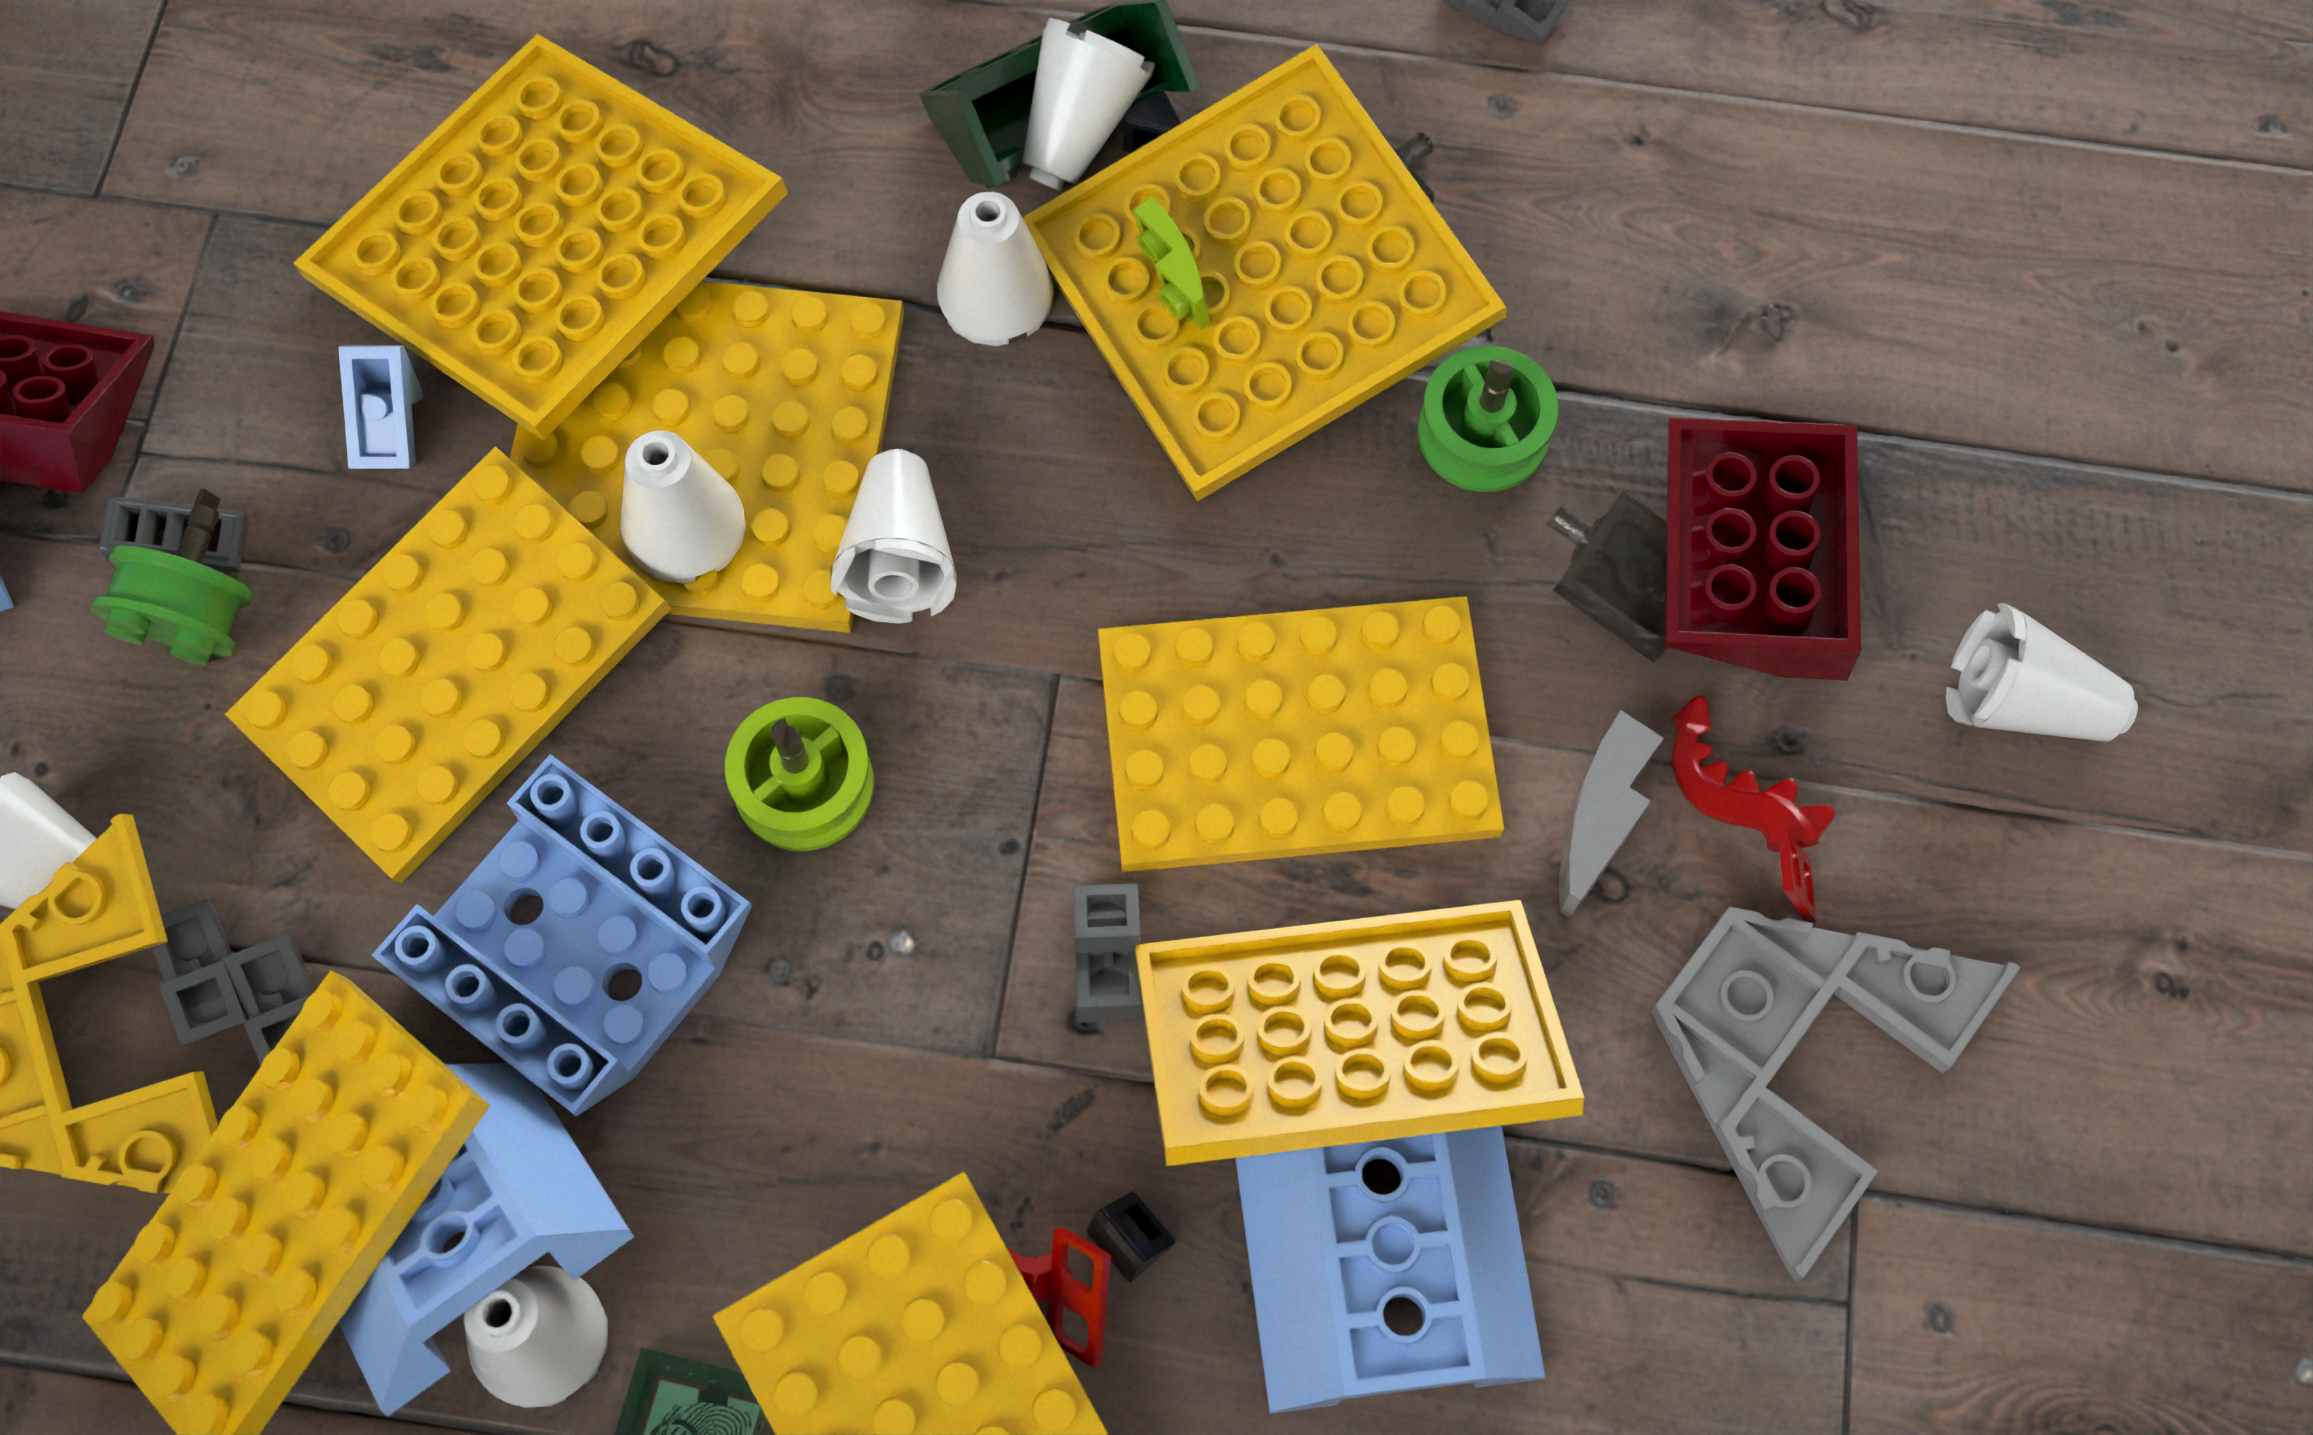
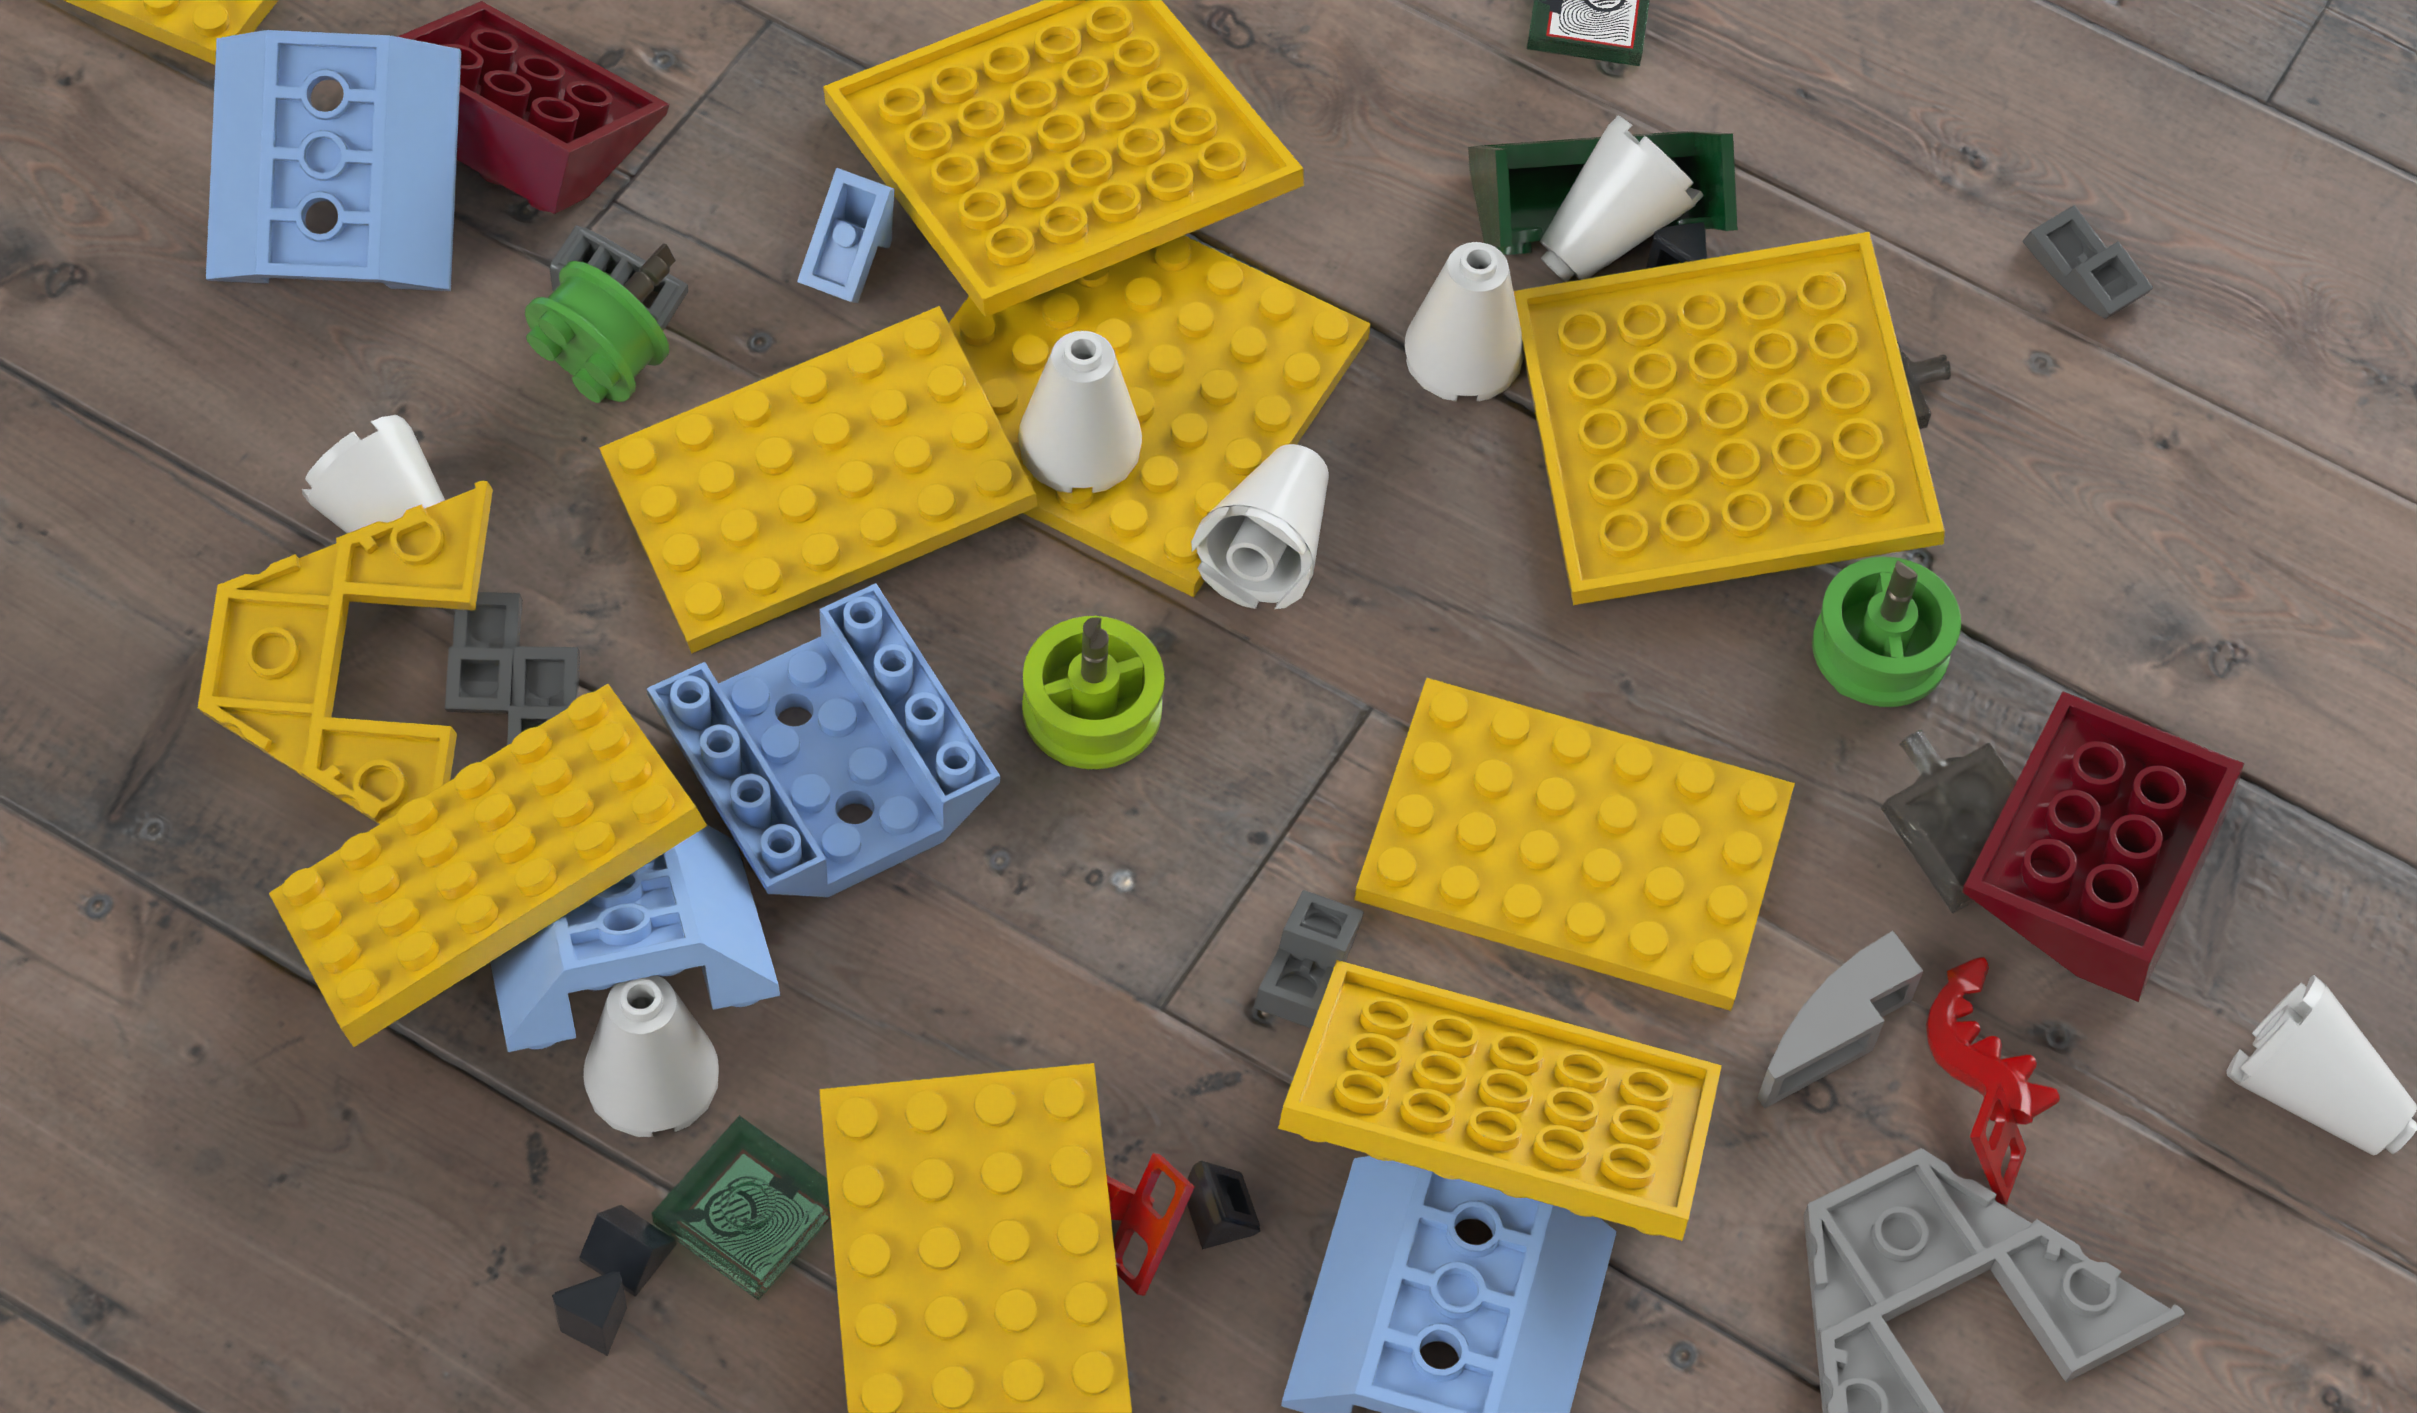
camera: 20 degrees right, 10 degrees down
(1174, 263) = (1639, 378): lime slope -> none

